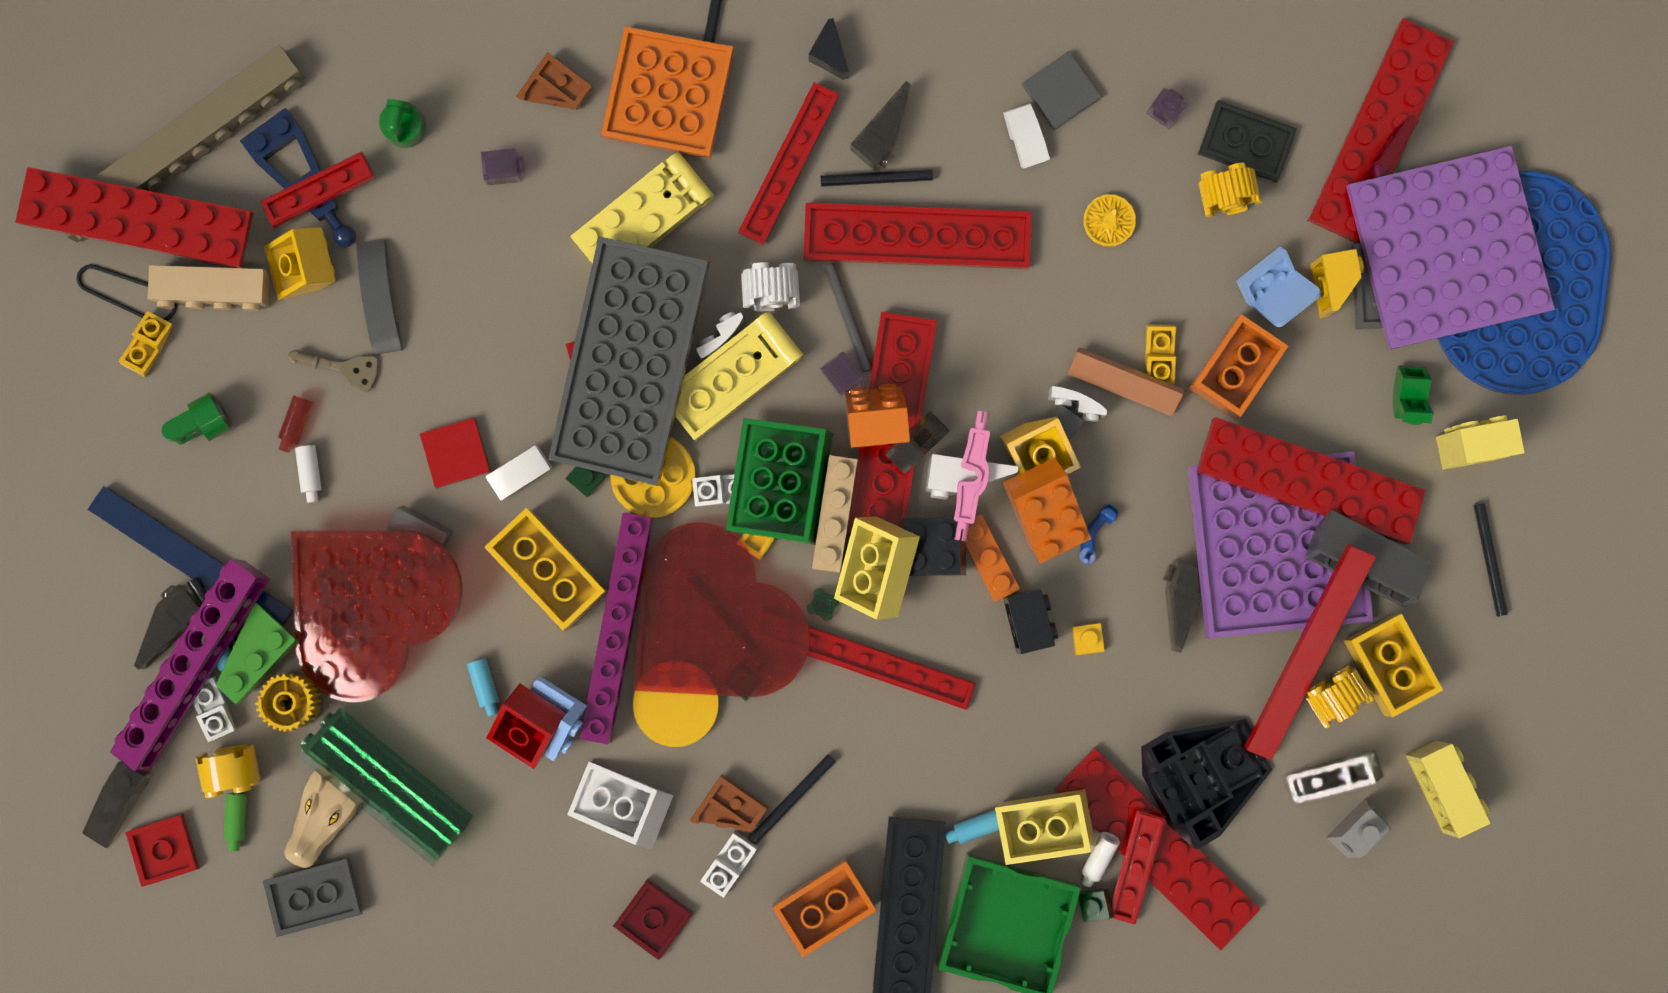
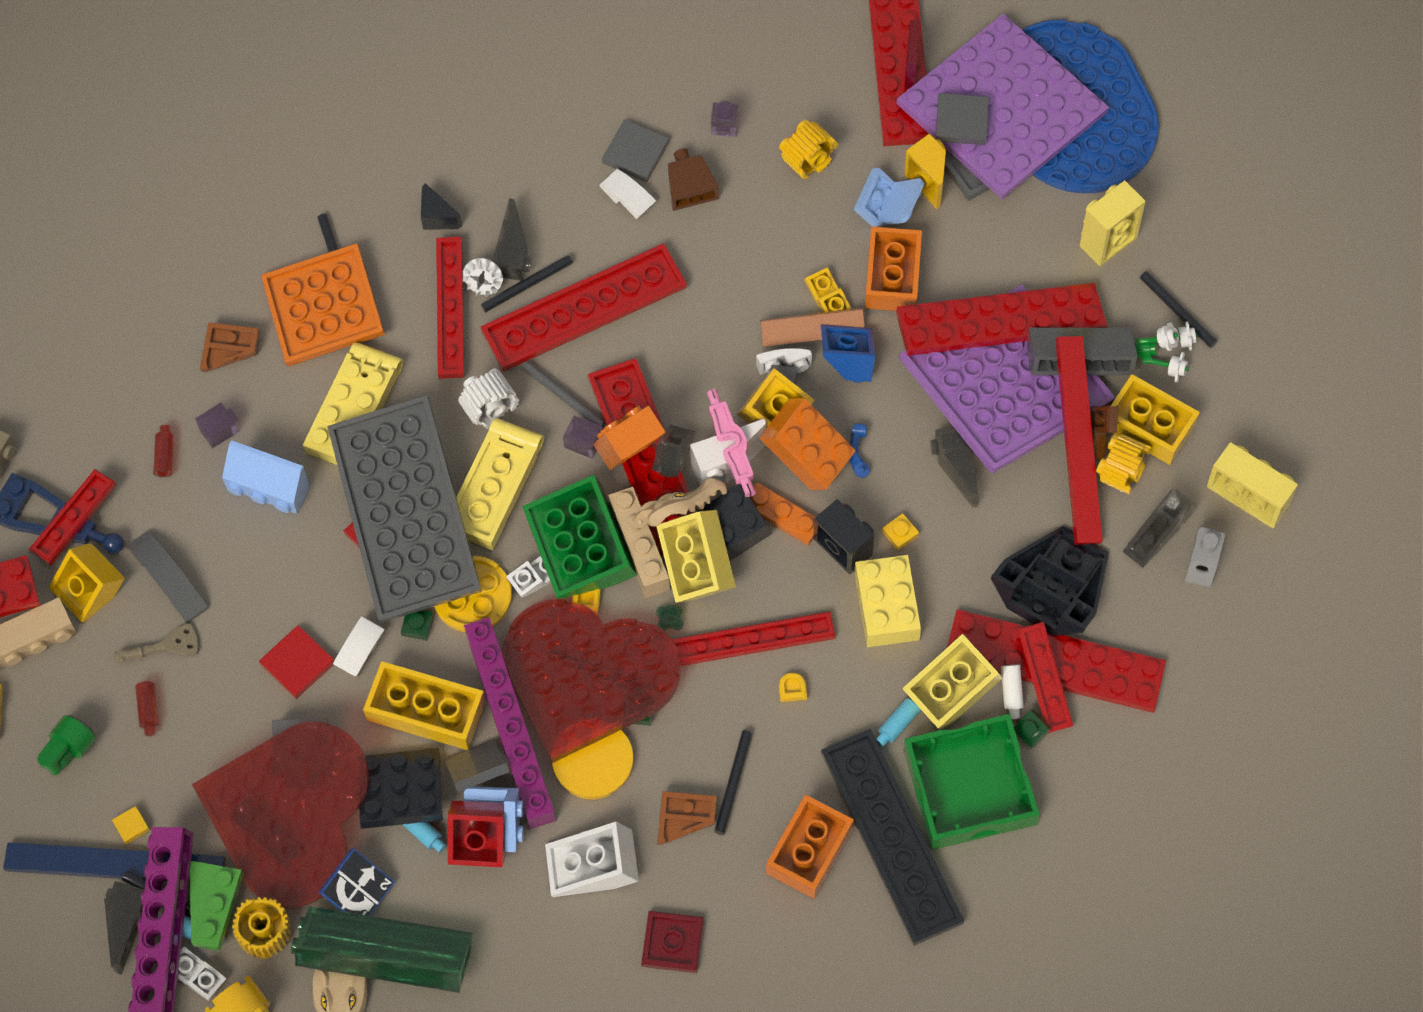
camera: 25 degrees left, 20 degrees down
(223, 530) = (130, 825): none -> yellow tile
(308, 472) = (179, 739): white cylinder -> none
(393, 710) = (356, 885): none -> tile
(402, 123) = (116, 432): green piece -> none
(438, 165) = (163, 452): none -> clear red cylinder
(484, 638) = (402, 789): none -> black plate
(515, 253) = (265, 478): none -> light blue slope
(562, 656) = (476, 765): none -> dark grey tile
(727, 328) = (469, 449): white slope -> none
(729, 863) = (710, 861): white slope -> none
(845, 155) = (492, 274): none -> white gear
(883, 510) = (677, 503): none -> tan animal
(898, 737) = (792, 688): none -> yellow tile
(1034, 705) = (887, 601): none -> light yellow brick
(1095, 156) = (690, 181): none -> reddish brown torso
(1109, 220) = (729, 221): yellow wheel -> none
(1145, 429) = (849, 351): none -> blue slope
(1247, 138) = (788, 109): pearl dark grey tile -> none
(1344, 652) = (1103, 421): none -> reddish brown tile
(1399, 246) = (962, 119): none -> dark grey tile
(1411, 395) = (1040, 222): green brick -> none
(1458, 596) = (1167, 338): none -> white plant

